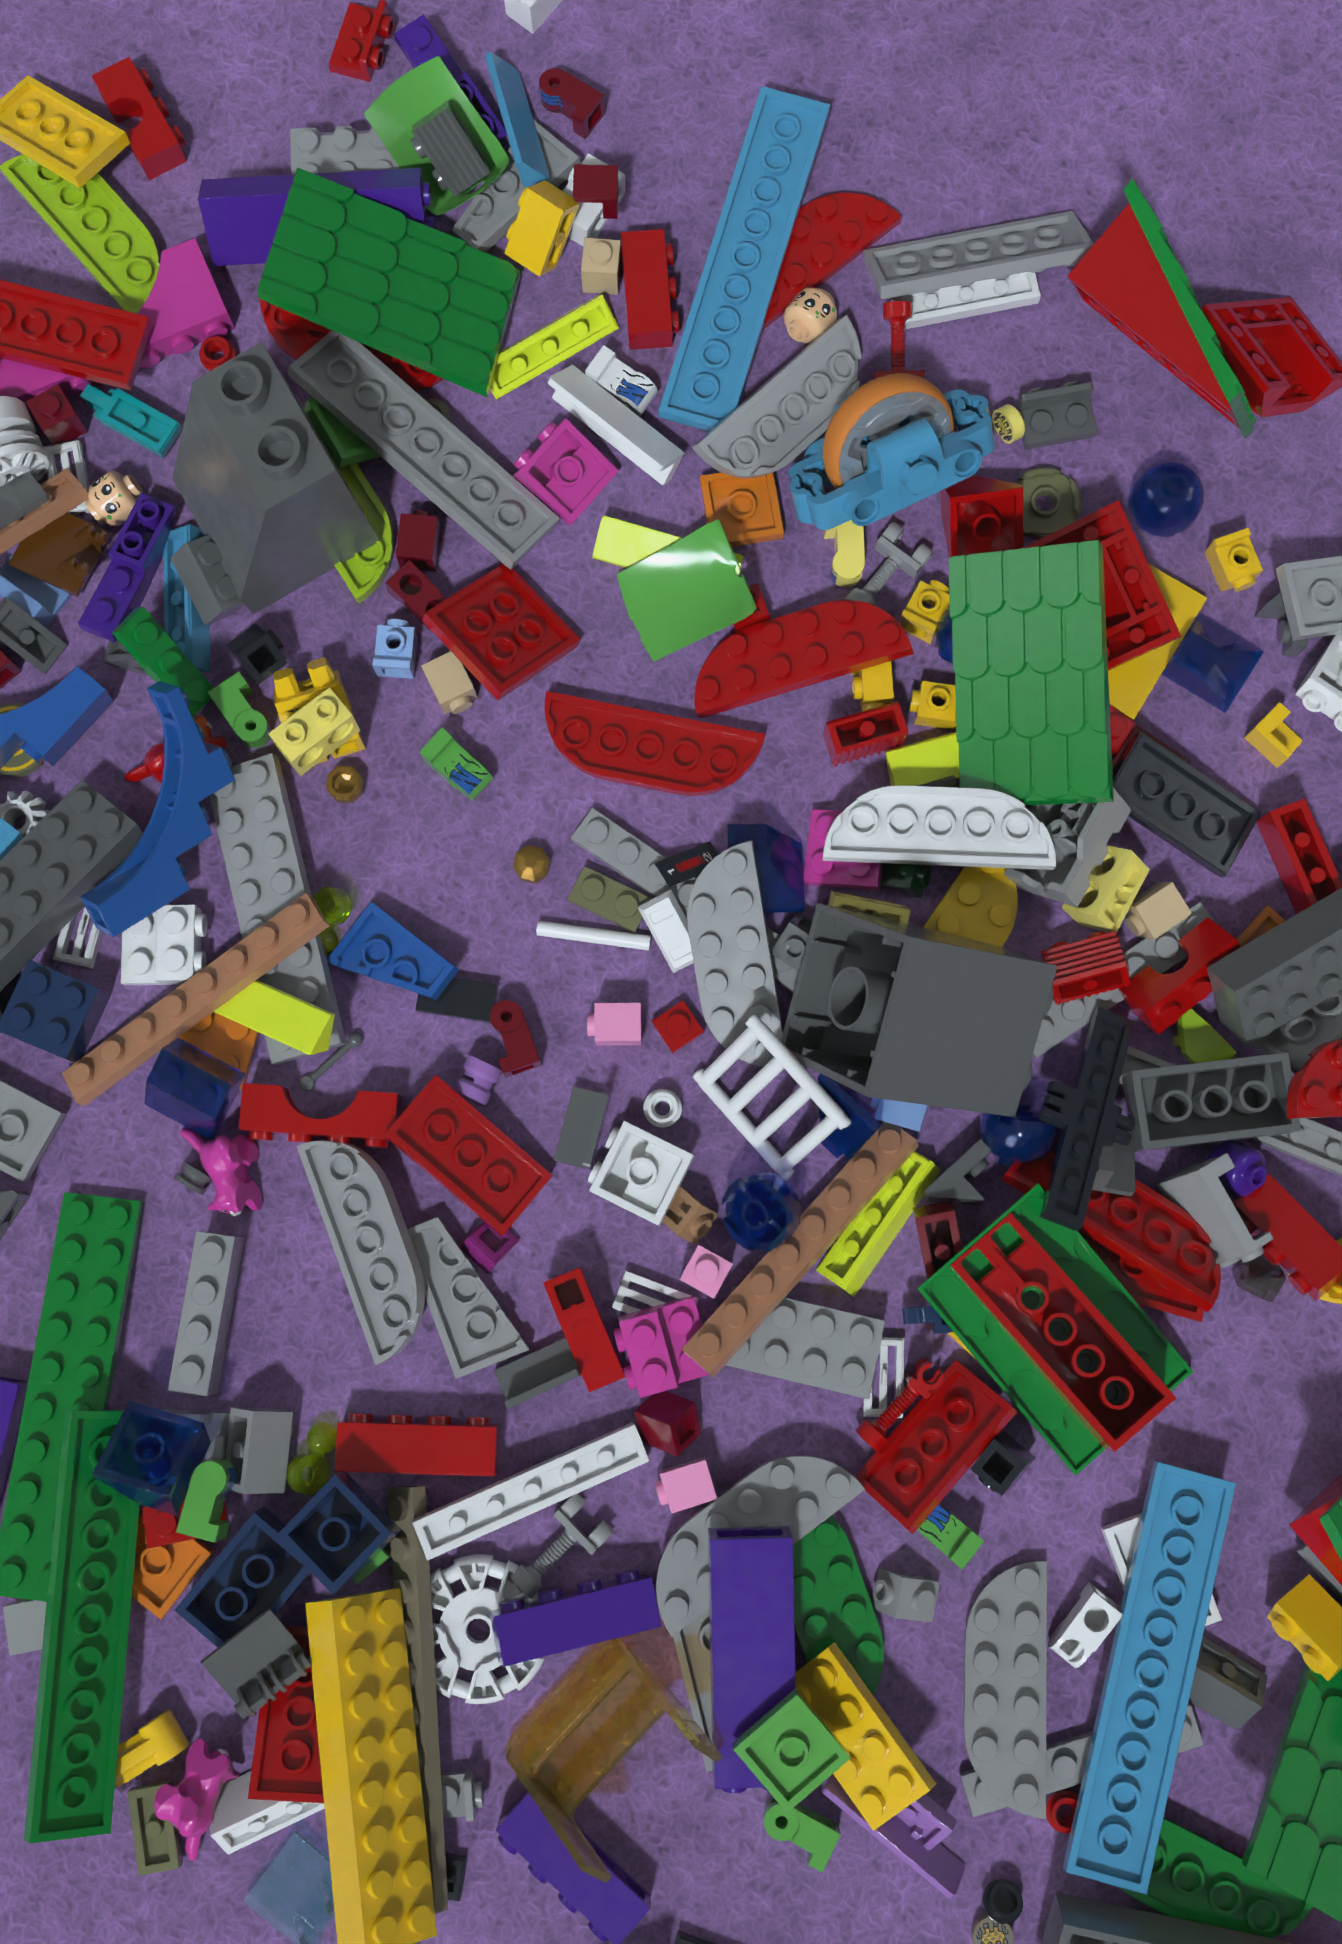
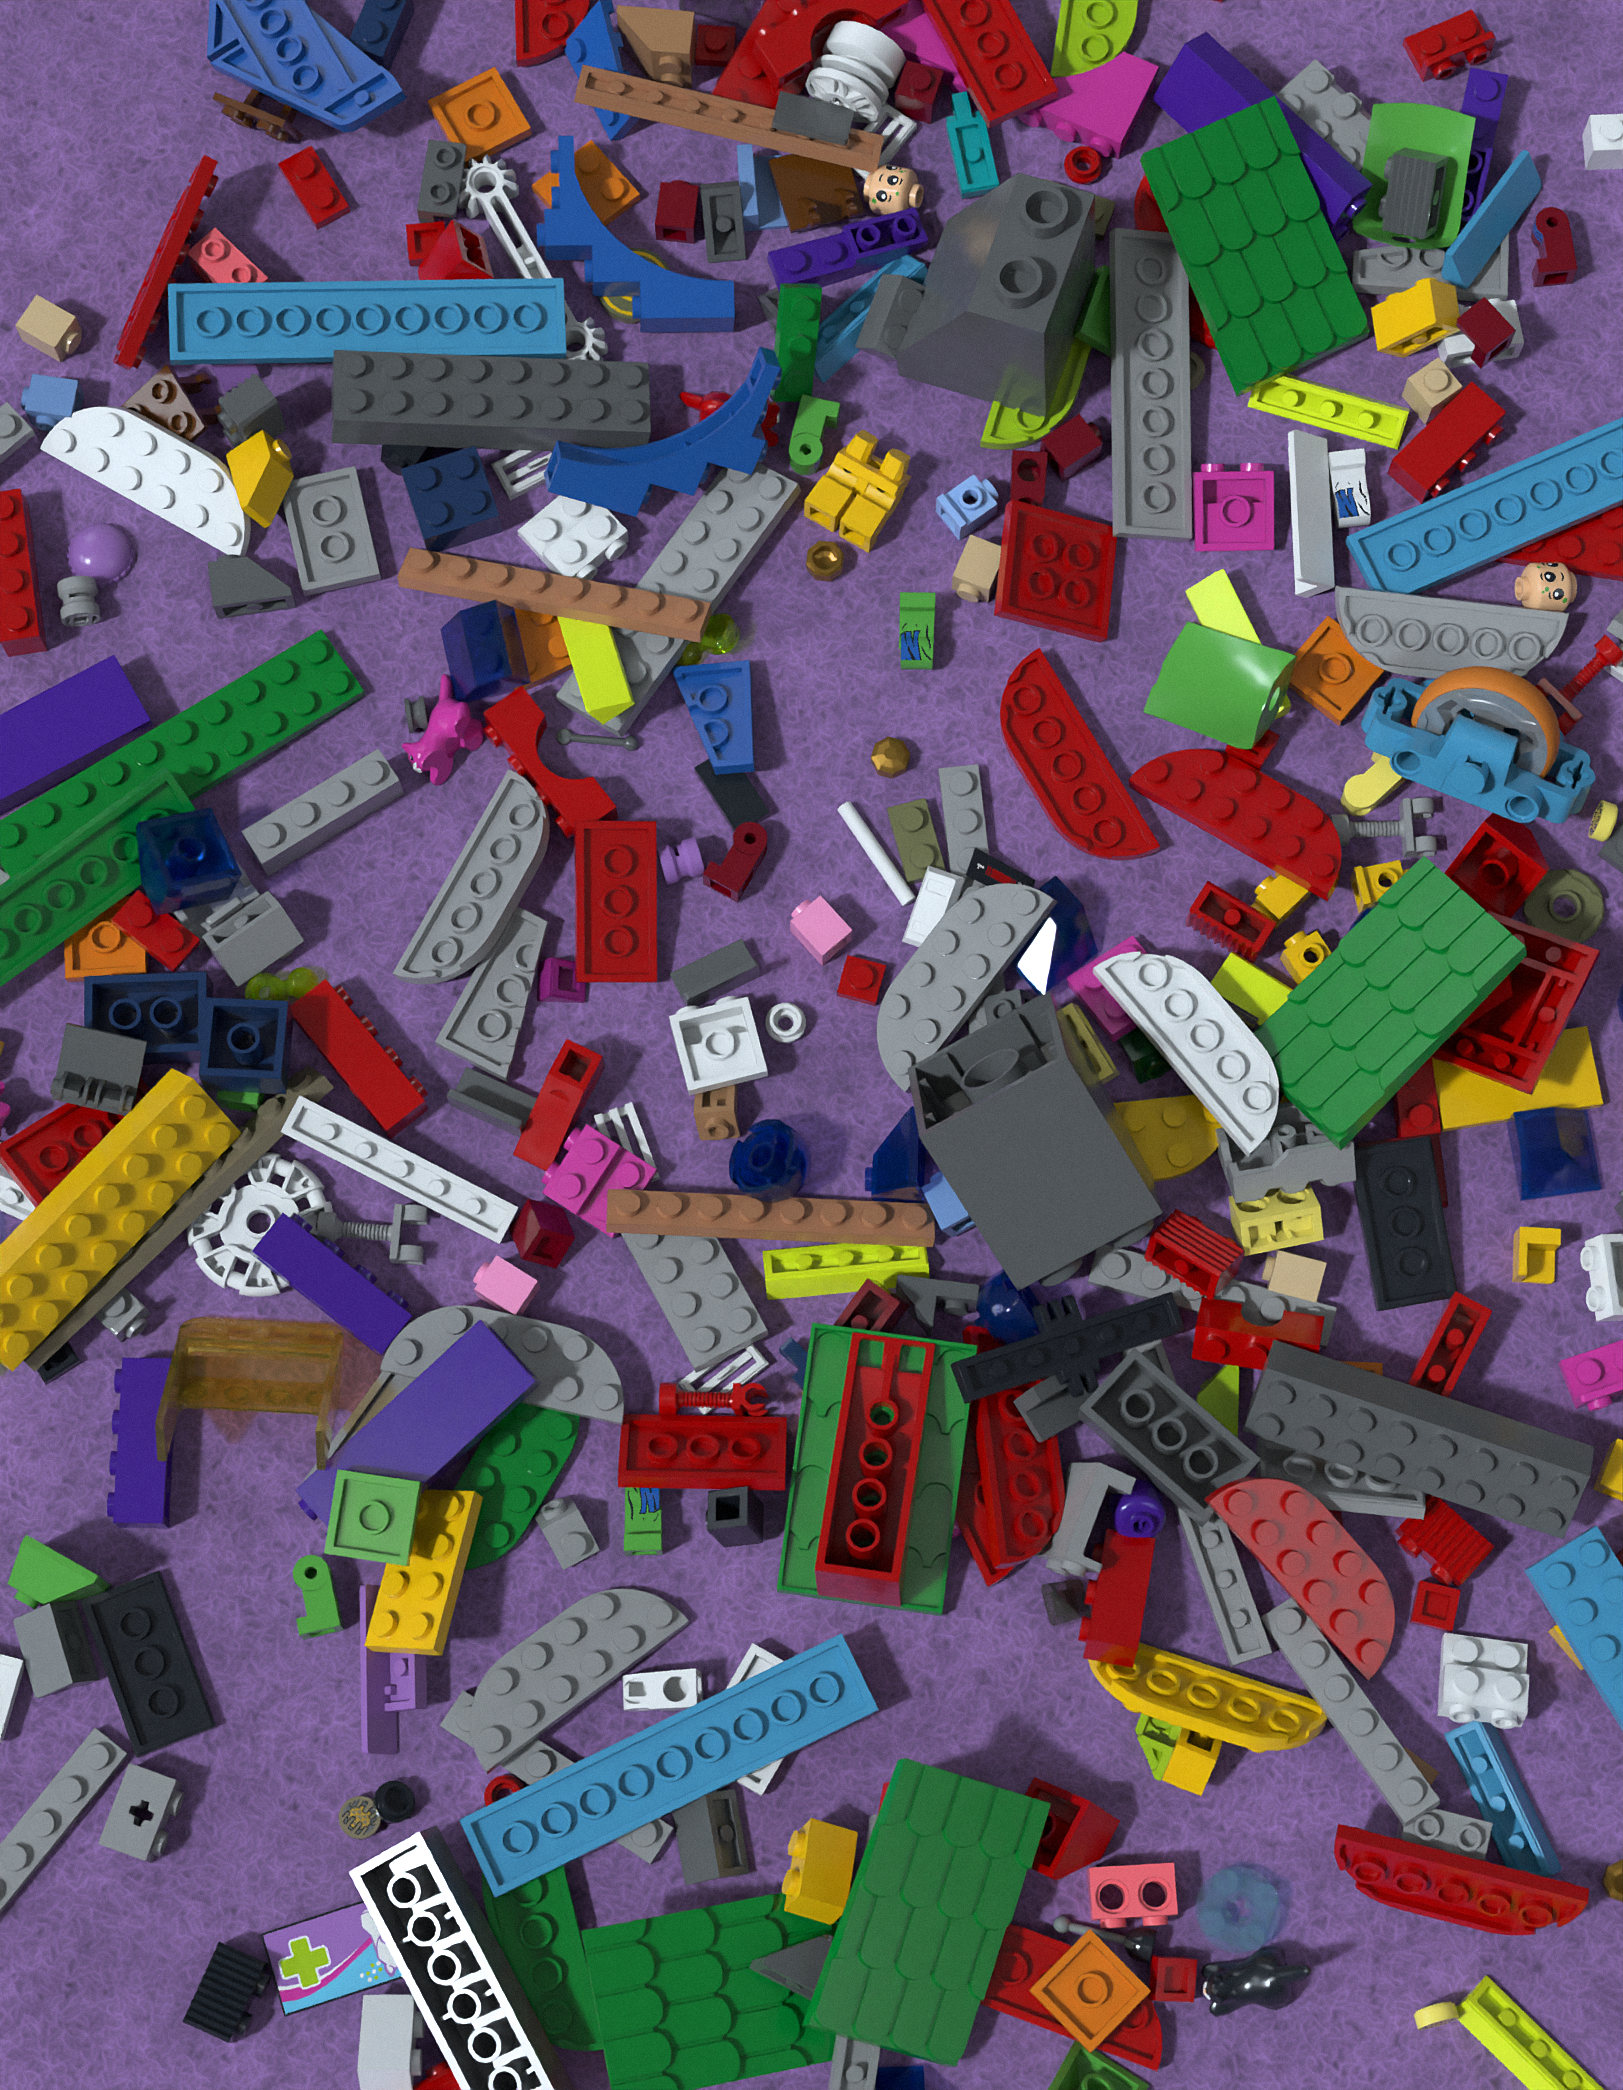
camera: 50 degrees right, 5 degrees down
(206, 1500) = (186, 927): bright green leg -> none
(258, 653) = (868, 404): black brick -> none
(314, 731) = (841, 499): light yellow brick -> none
(706, 1271) = (685, 1161): bright pink brick -> none
(808, 1089) = (894, 1109): white bar -> none

